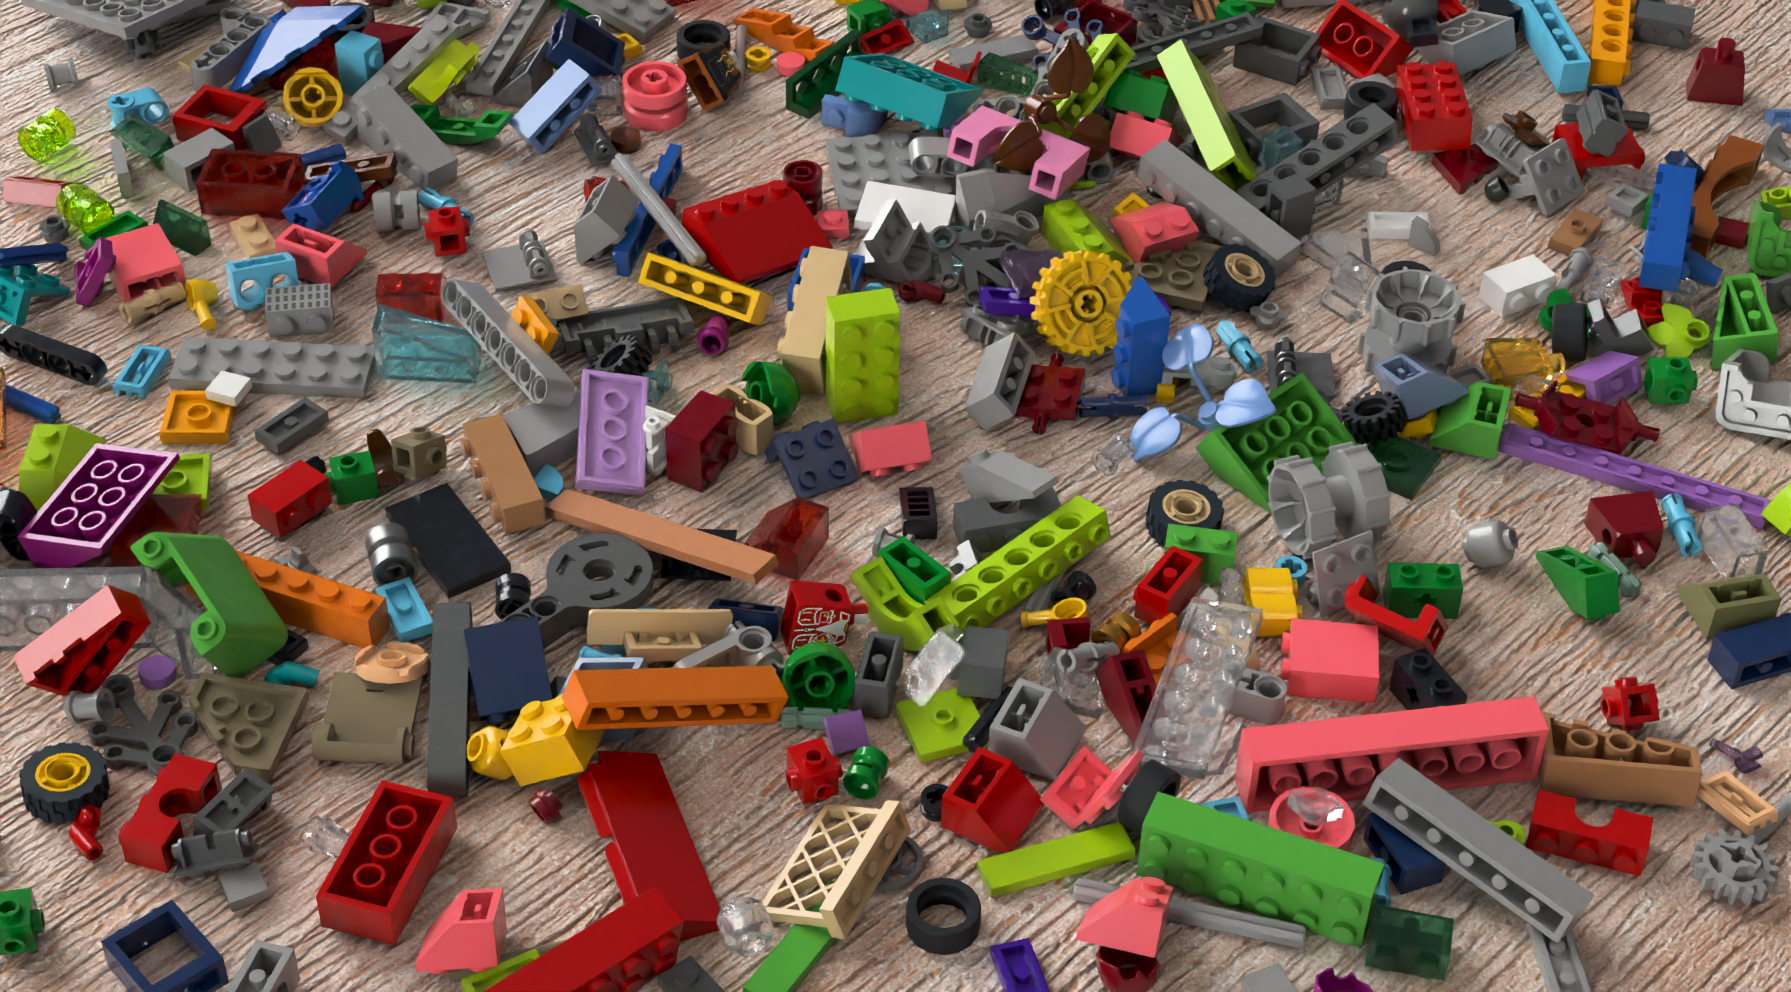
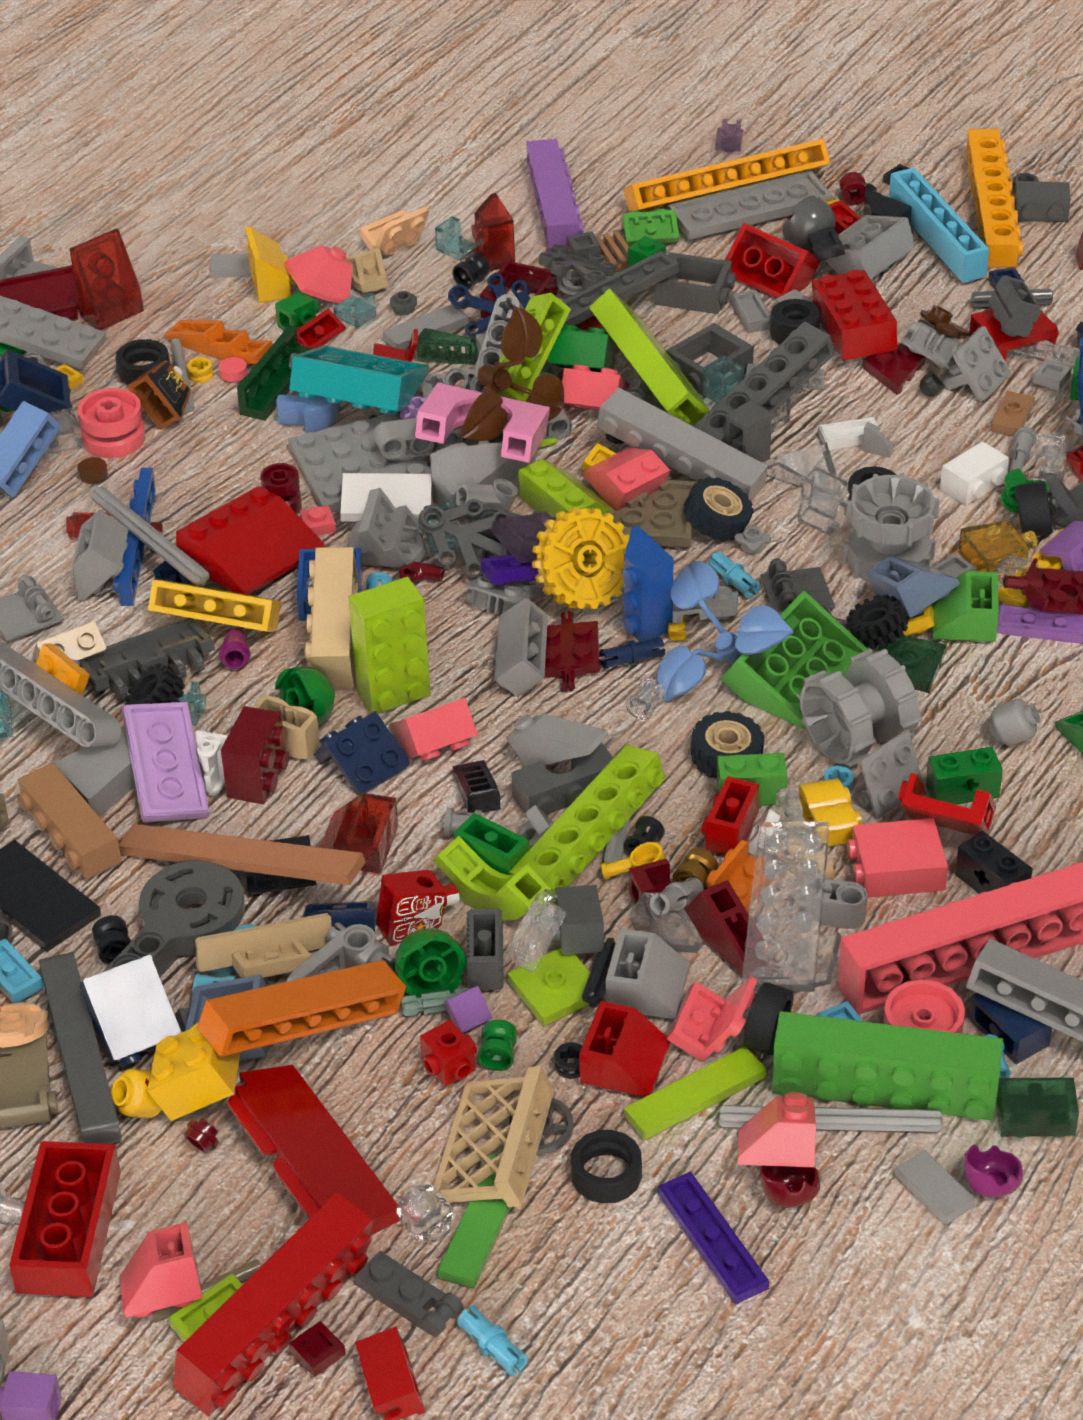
camera: 10 degrees left, 0 degrees up
(549, 482) = (115, 820): medium azure tile -> none
(595, 141) = (64, 477): dark grey hinge -> none
(1315, 806) = (925, 997): clear plate -> none

